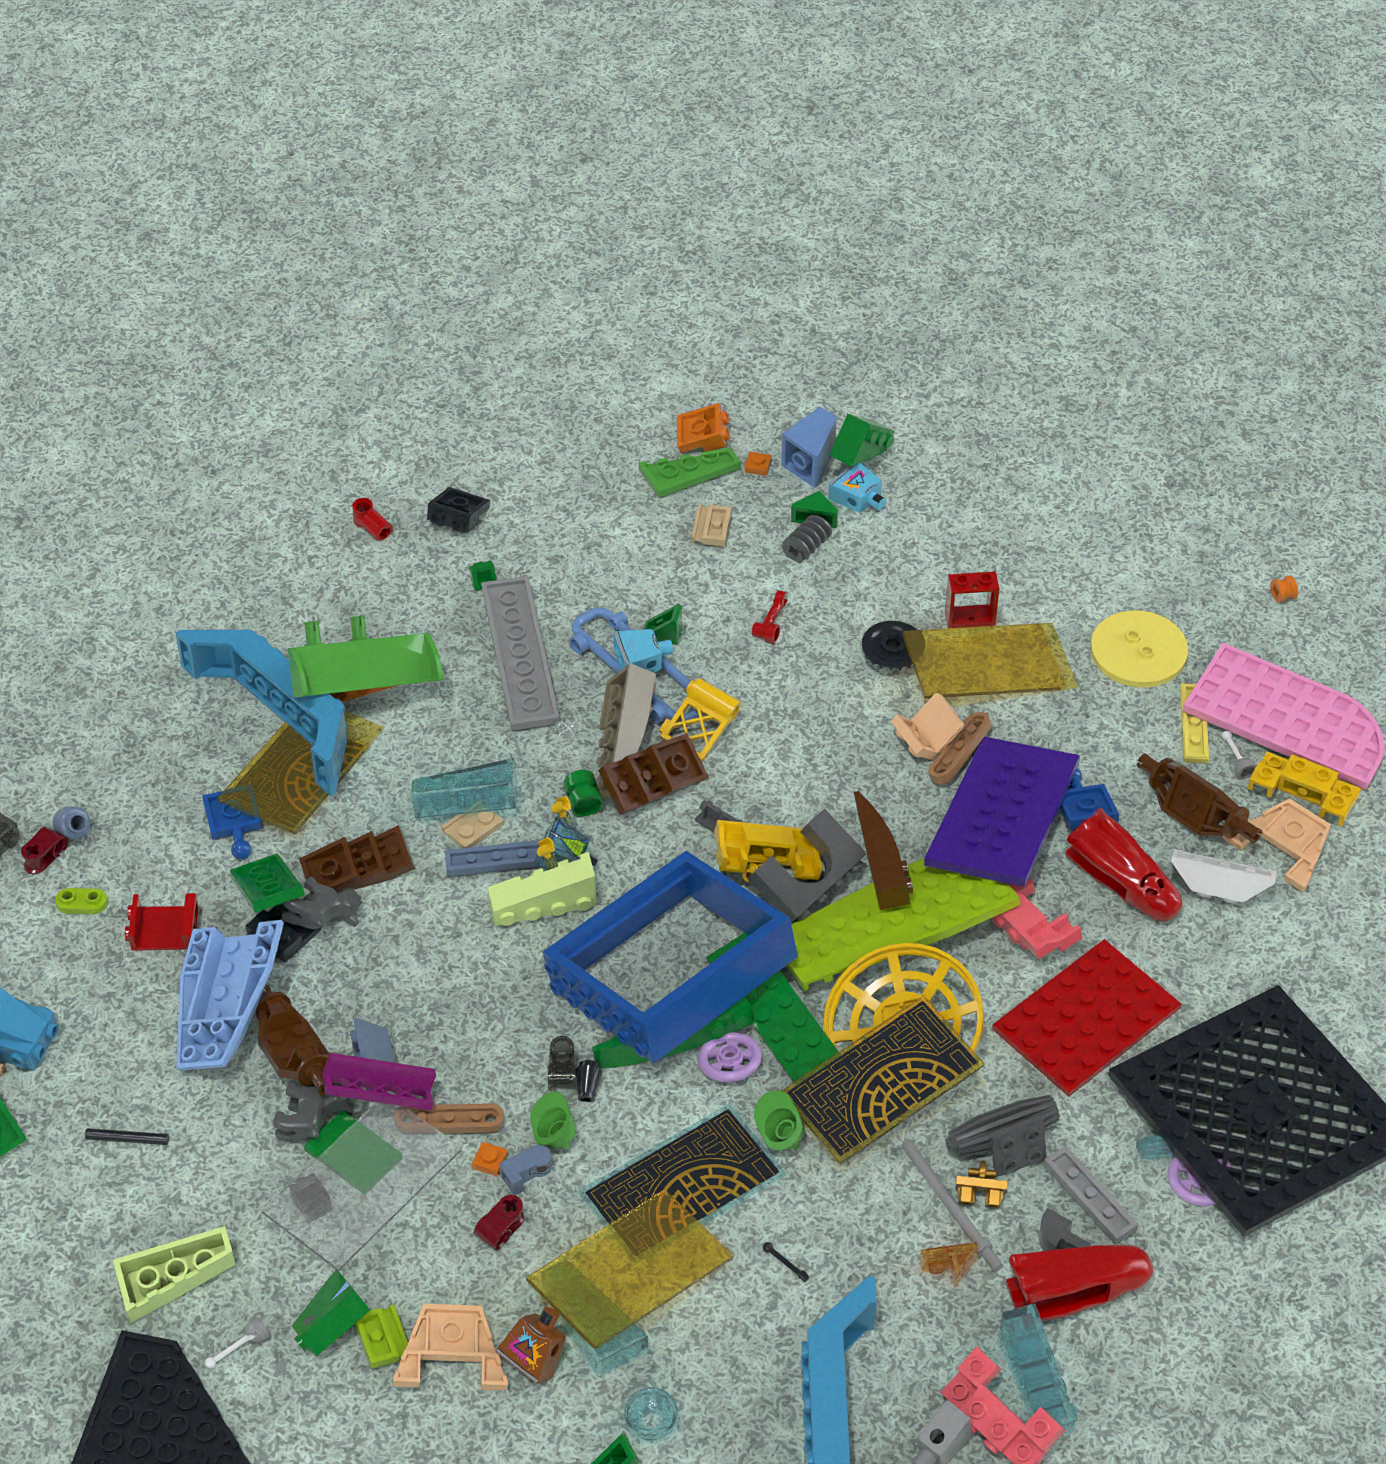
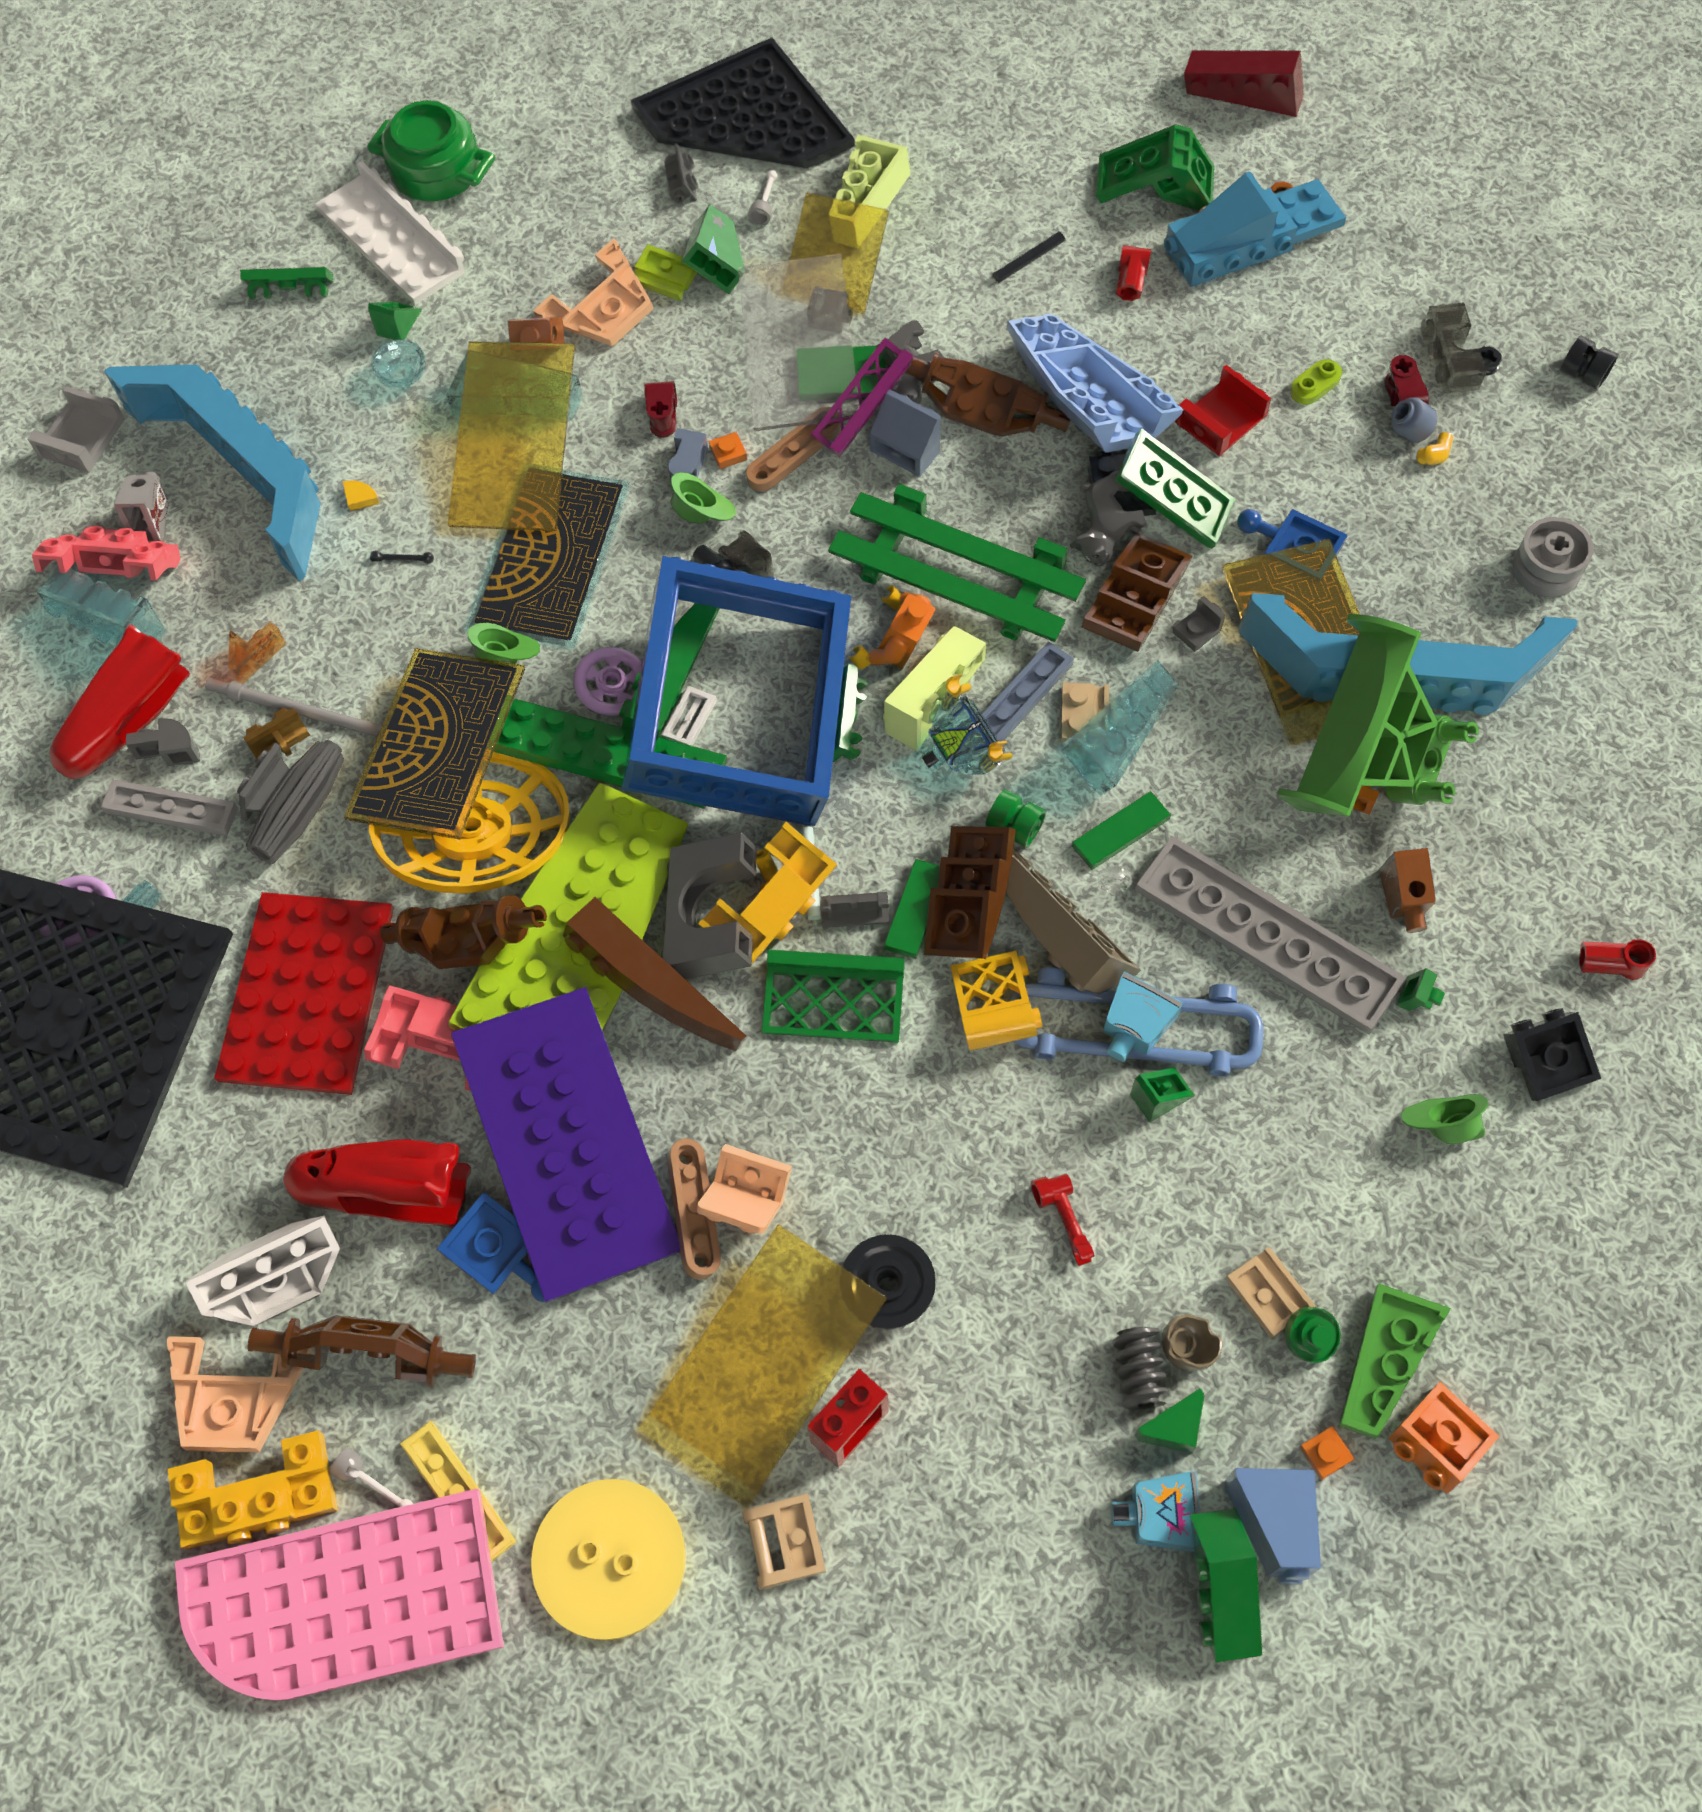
camera: 140 degrees right, 15 degrees up
(77, 1064) = (1132, 269): none -> red piece
(87, 803) = (1436, 453): none -> yellow arm
(118, 694) = (1552, 557): none -> light grey wheel
(246, 1233) = (847, 229): none -> clear yellow piece
(268, 1427) = (680, 176): none -> dark grey hinge
(348, 818) = (1200, 625): none -> dark grey bracket
(410, 914) = (908, 519): none -> green fence
(426, 610) = (1409, 887): none -> dark orange torso
(520, 936) = (903, 632): none -> orange torso
(531, 754) = (1121, 830): none -> green tile
(540, 512) = (1449, 1119): none -> bright green piece
(686, 800) = (912, 913): none -> green tile
(713, 495) = (1312, 1334): none -> green plate
(768, 799) = (833, 967): none -> green fence
(773, 528) = (1204, 1344): none -> dark tan hair
(773, 1335) = (359, 495): none -> yellow tile
(965, 940) = (463, 933): none -> reddish brown plate
(1039, 593) = (796, 1537): none -> tan plate

